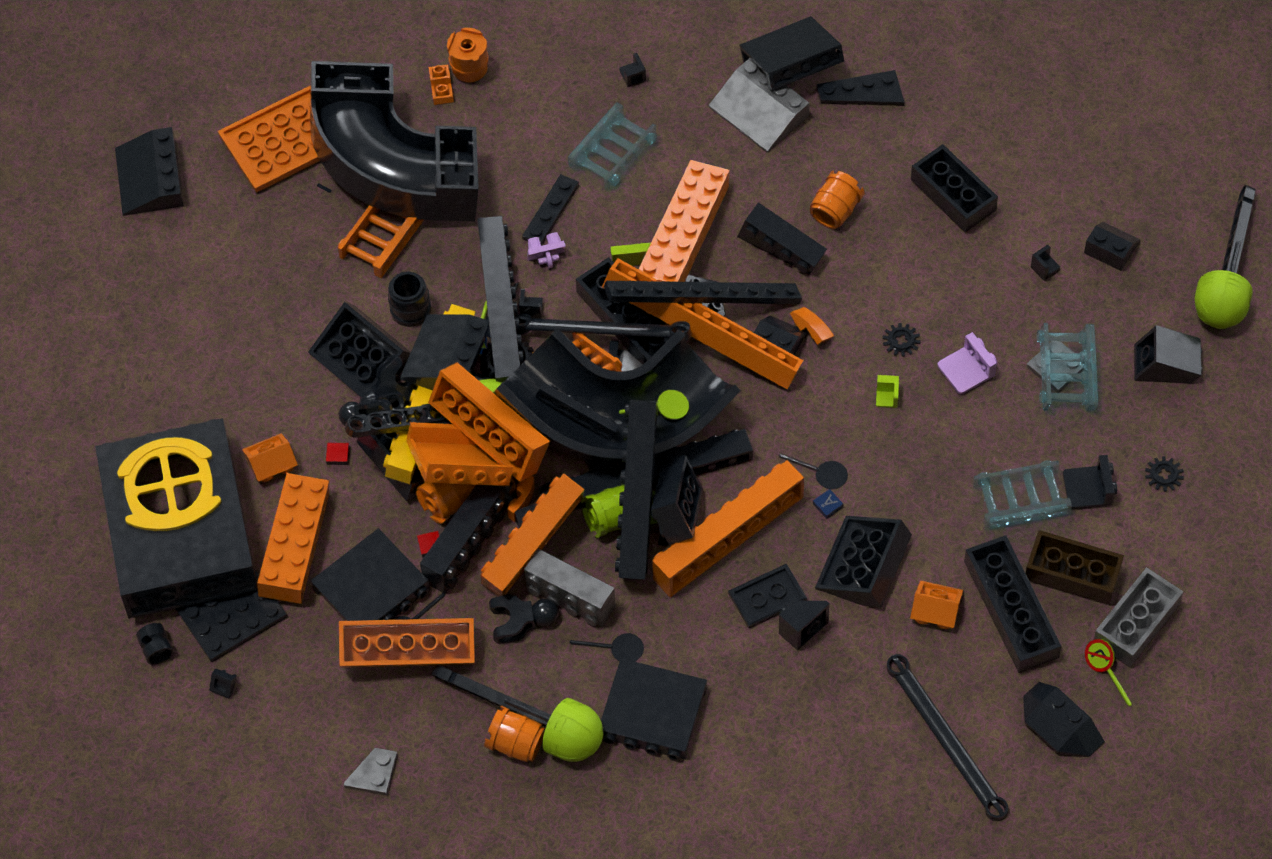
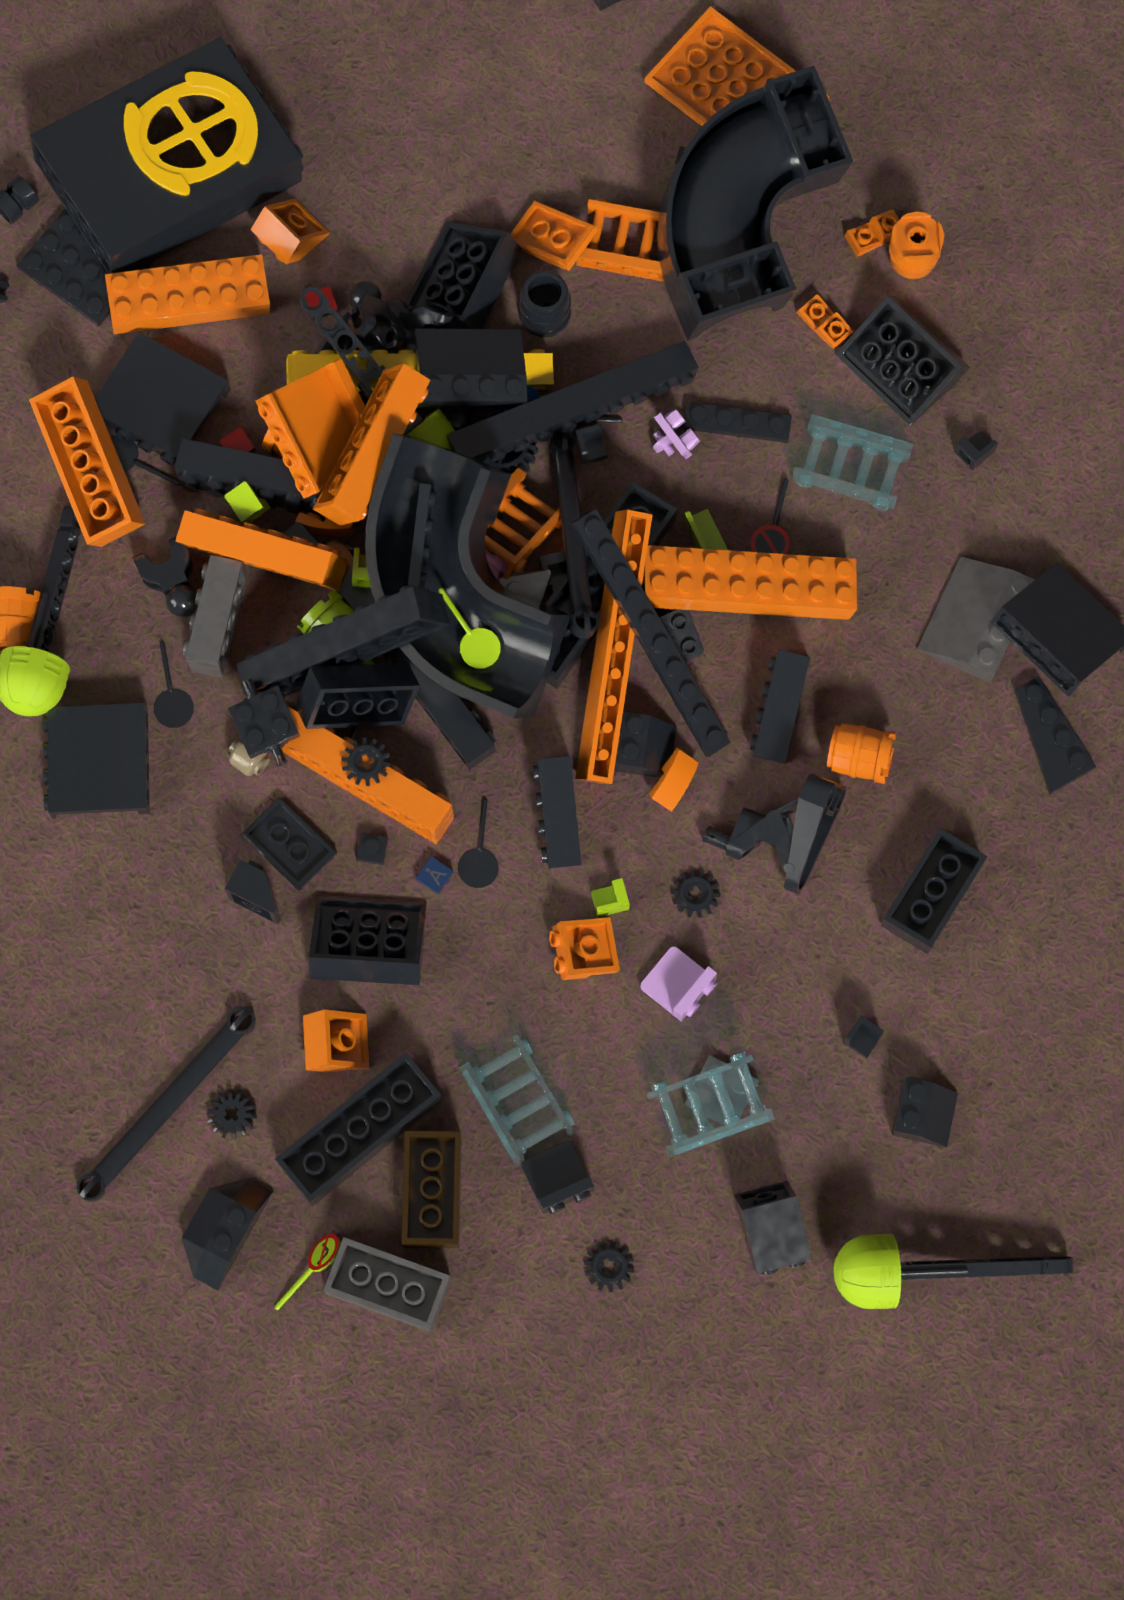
camera: 70 degrees right, 15 degrees up
(355, 280) = (553, 235): none -> orange tile
(488, 536) = (246, 503): none -> lime panel
(499, 133) = (824, 322): none -> orange slope
(547, 94) = (902, 360): none -> black slope
(576, 472) = (360, 574): none -> lime panel
(648, 216) = (771, 537): none -> piece
(676, 565) = (264, 722): none -> black plate
(688, 601) = (243, 763): none -> dark tan head
(726, 501) = (356, 757): none -> black gear
(792, 540) = (372, 849): none -> black plate
(809, 402) = (559, 812): none -> black wedge
(880, 255) = (796, 844): none -> black connector
(920, 418) = (584, 948): none -> orange plate
(966, 701) = (231, 1125): none -> black gear

